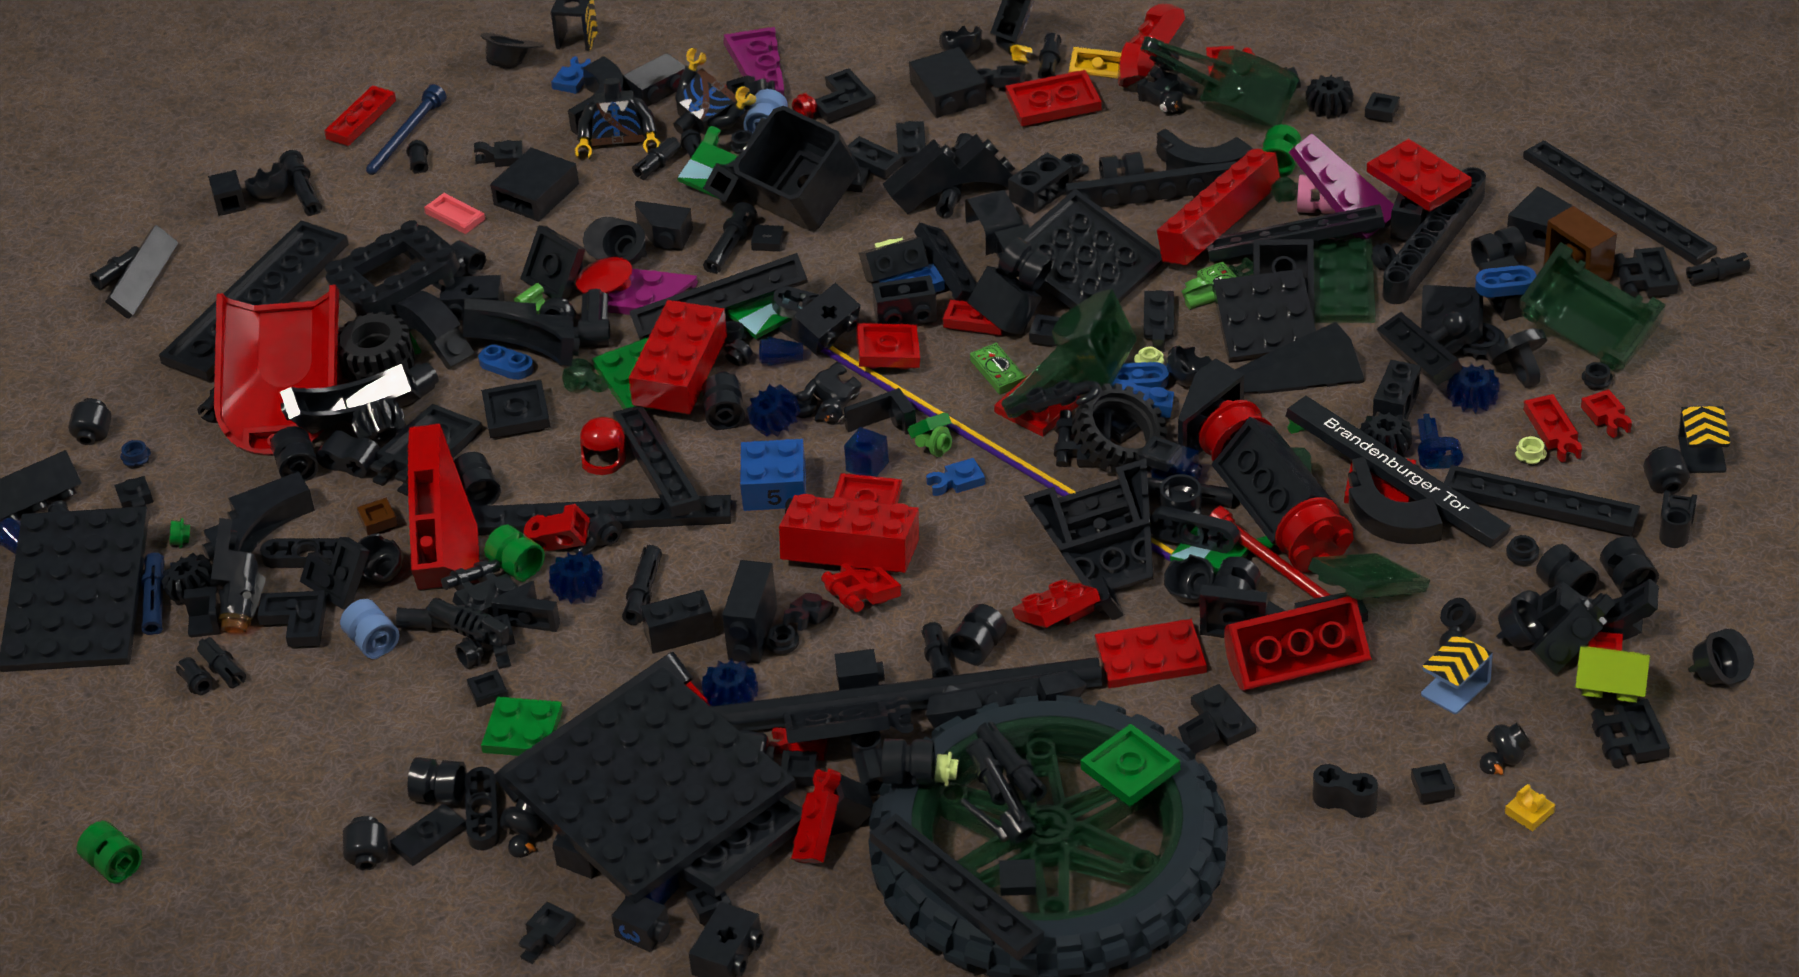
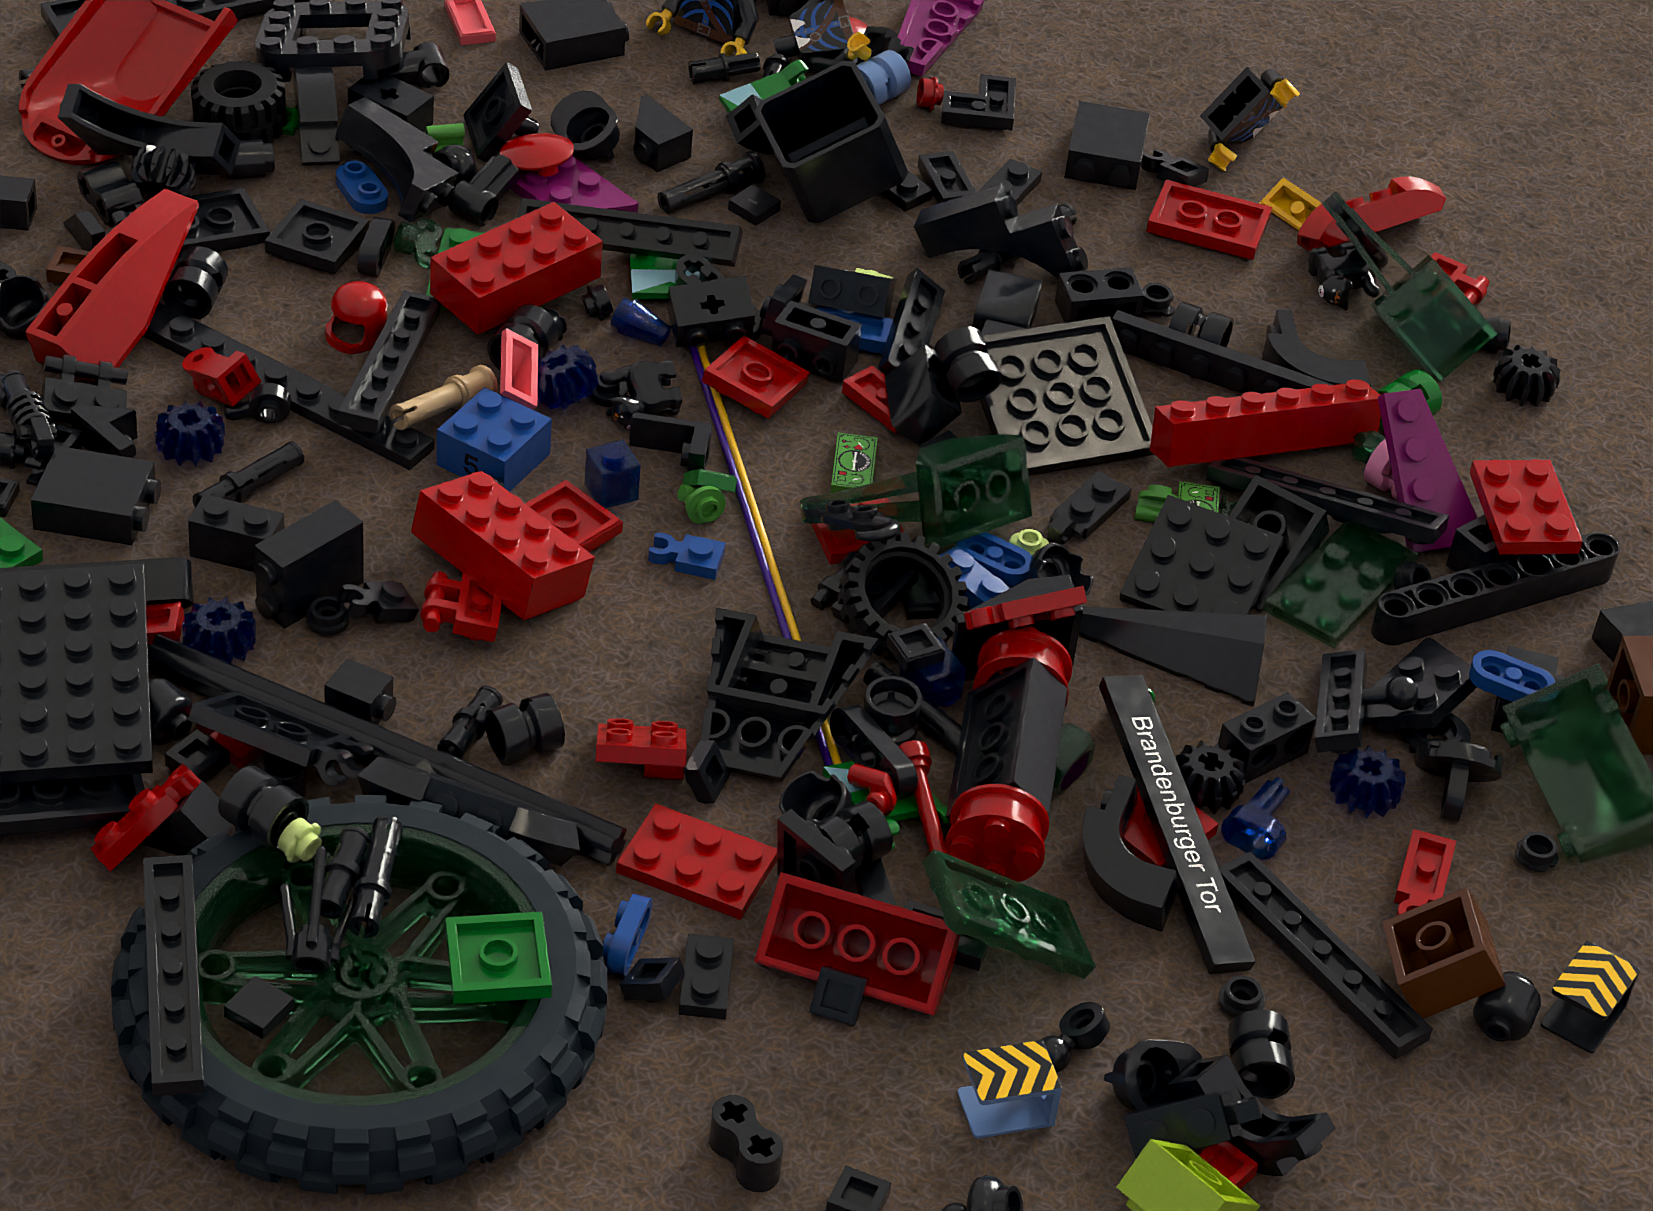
camera: 25 degrees right, 0 degrees up
(294, 452) = (56, 163): black wheel -> none
(363, 488) = (85, 229): none -> black tile
(515, 552) = (154, 374): green wheel -> none
(560, 649) = (95, 495): none -> black brick
(562, 394) = (376, 246): none -> black beam
(717, 458) = (453, 394): none -> tan pin
(735, 330) = (614, 278): black plate -> none
(748, 421) = (519, 369): none -> coral slope
(861, 290) = (773, 306): none -> black plate
(967, 41) = (1166, 114): black hair -> none
(1049, 55) = (1250, 174): black pin -> none
(1156, 708) = (631, 925): none -> blue plate
(1217, 545) = (879, 786): none -> red arm
(1218, 392) = (1021, 611): none -> red plate
(1310, 679) = (838, 995): none -> black tile
(1382, 107) = (1579, 419): black plate -> none
(1499, 245) = (1542, 634): black wheel -> none
(1530, 450) = (1368, 890): yellowish green plate -> none
(1608, 410) = (1506, 897): red plate -> none
(1614, 458) = (1443, 953): none -> reddish brown brick
(1627, 564) = (1346, 1088): black wheel -> none
(1676, 519) = (1467, 1070): black piece -> none

